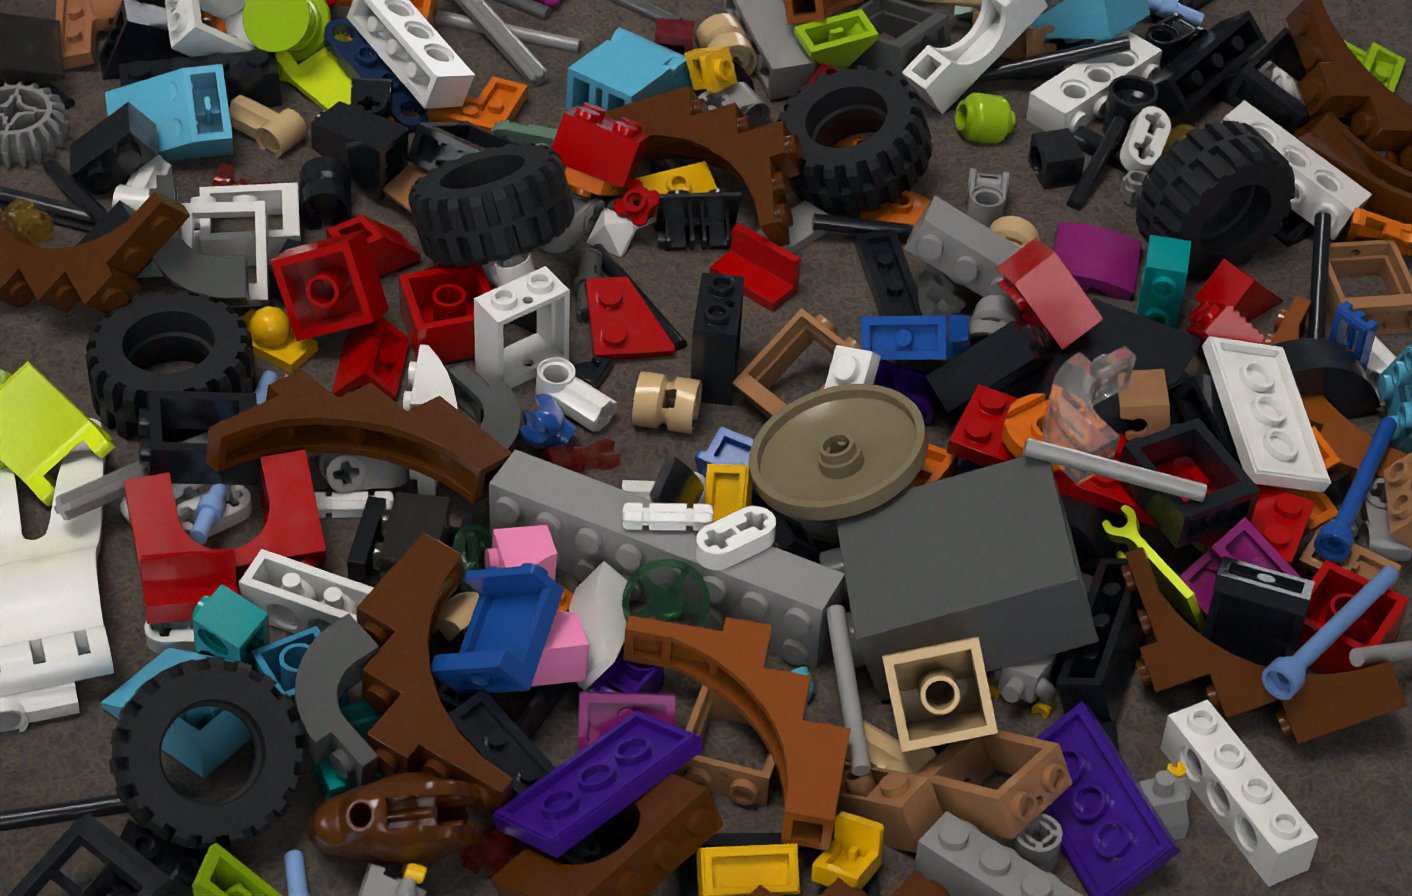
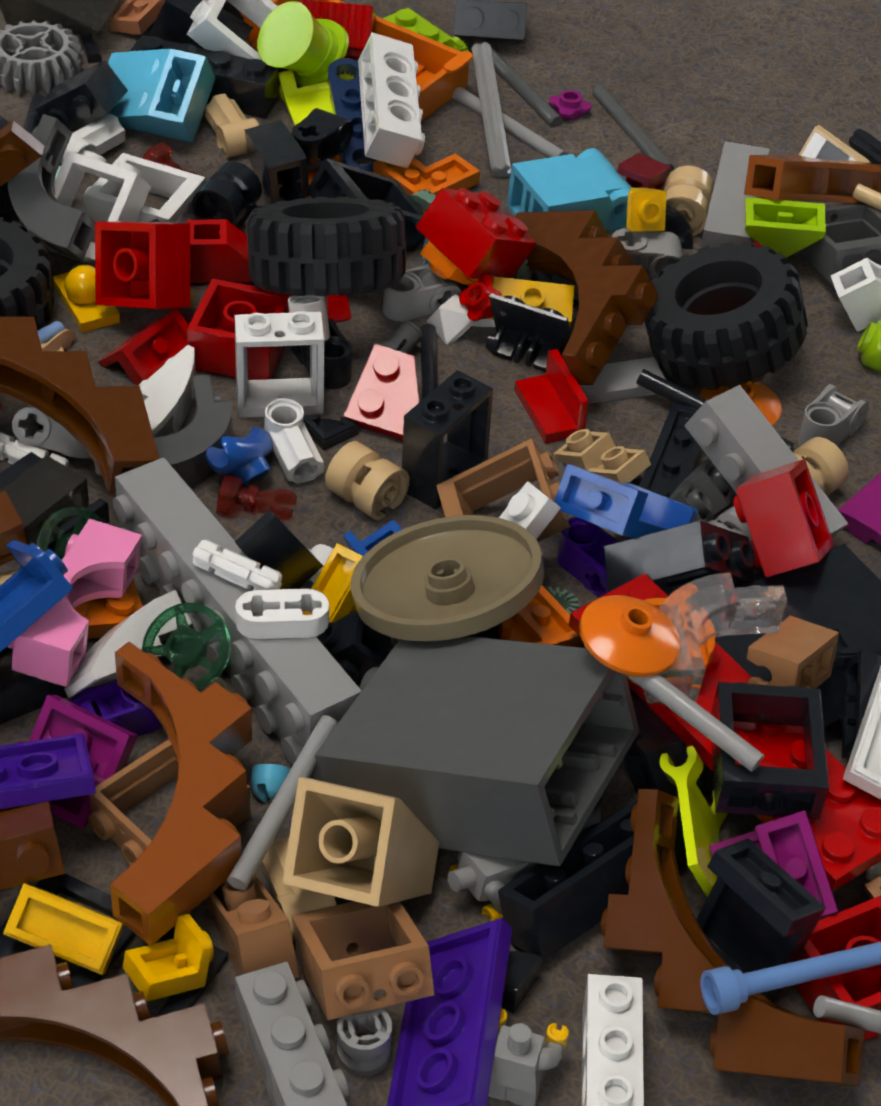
camera: 30 degrees right, 0 degrees up
(839, 307) = (599, 455): none -> tan slope
(1053, 433) = (629, 636): none -> orange dish

